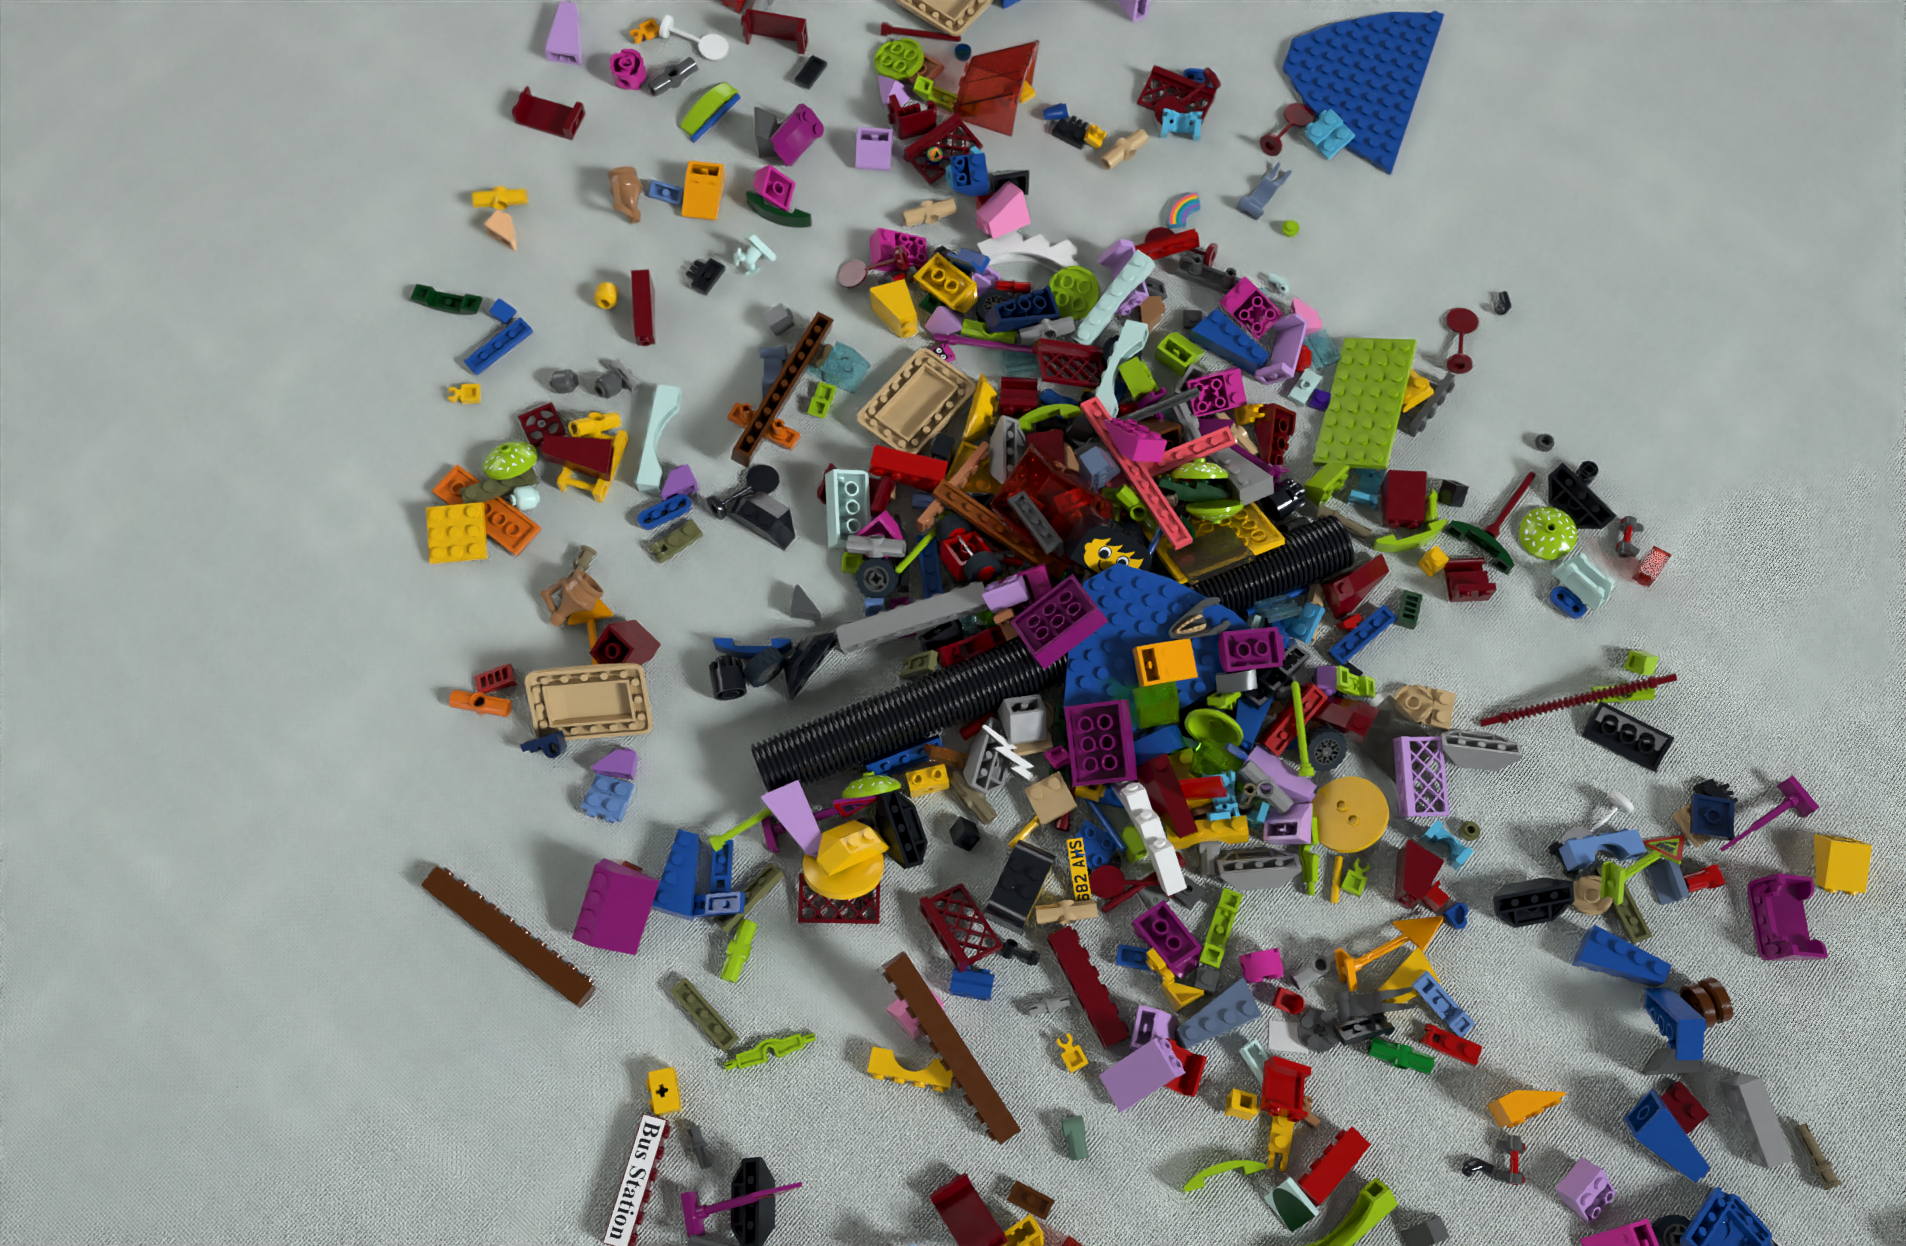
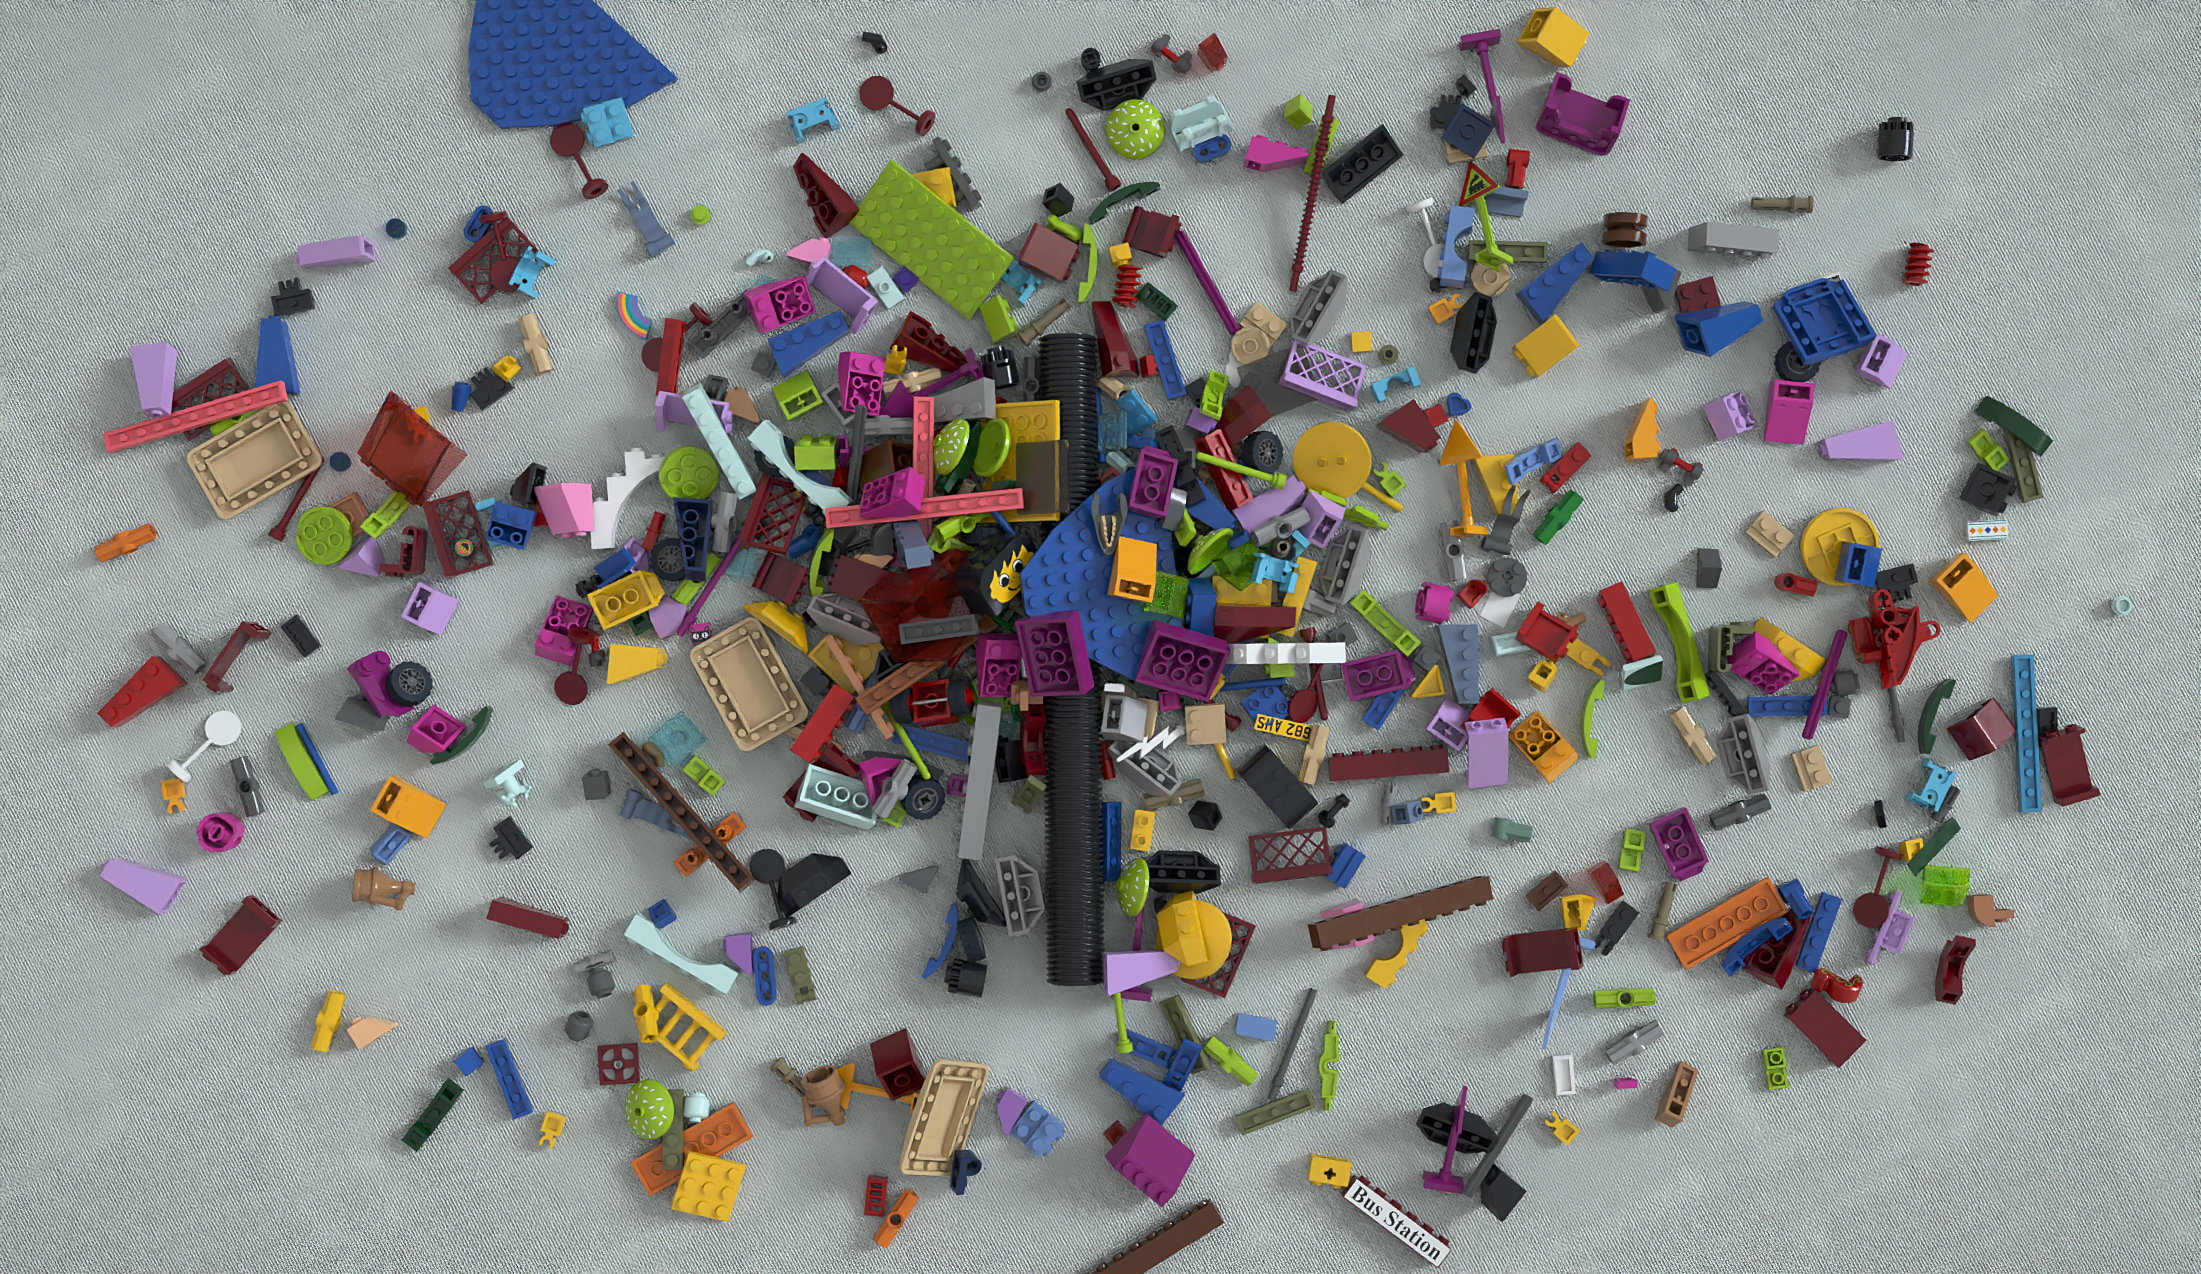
camera: 65 degrees left, 20 degrees up
(580, 454) = (677, 1036): dark red slope -> none
(606, 295) = (494, 949): yellow head -> none
(687, 413) = (662, 914): none -> blue slope
(699, 1146) = (1387, 1156): dark grey axle -> none
(737, 1005) = (1278, 1080): none -> dark grey bar
(781, 963) = (1255, 1027): none -> medium blue slope
(805, 154) = (409, 684): none -> black wheel
(823, 692) = (1020, 894): none -> light grey wedge
(873, 606) = (949, 810): medium blue tile -> none
(929, 212) = (529, 580): tan piece -> none
(946, 756) = (1127, 804): clear orange slope -> none
(1006, 594) = (999, 687): lavender slope -> none
(1048, 699) = (1114, 687): none -> white tile
(1049, 1023) = (1407, 812): none -> sand blue brick
(1156, 964) = (1395, 697): yellow plate -> none
(1165, 26) = (396, 228): none -> clear blue tile
(1171, 1137) = (1543, 747): none -> light orange slope
(1203, 788) = (1263, 588): red slope -> none
(1355, 314) = (828, 200): none -> dark red wedge
(1363, 1028) = (1523, 541): black plate -> none
(1409, 575) = (1126, 286): none -> red piece
(1421, 277) = (811, 116): none -> medium azure piece
(1449, 644) = (1206, 282): none -> magenta axle
(1468, 802) = (1361, 342): none -> yellow tile
(1537, 865) = (1443, 309): none -> light orange plate
(1555, 973) = (1545, 346): none -> yellow slope
(1590, 651) = (1269, 156): none -> dark pink slope
(1749, 800) = (1465, 86): none -> black plate

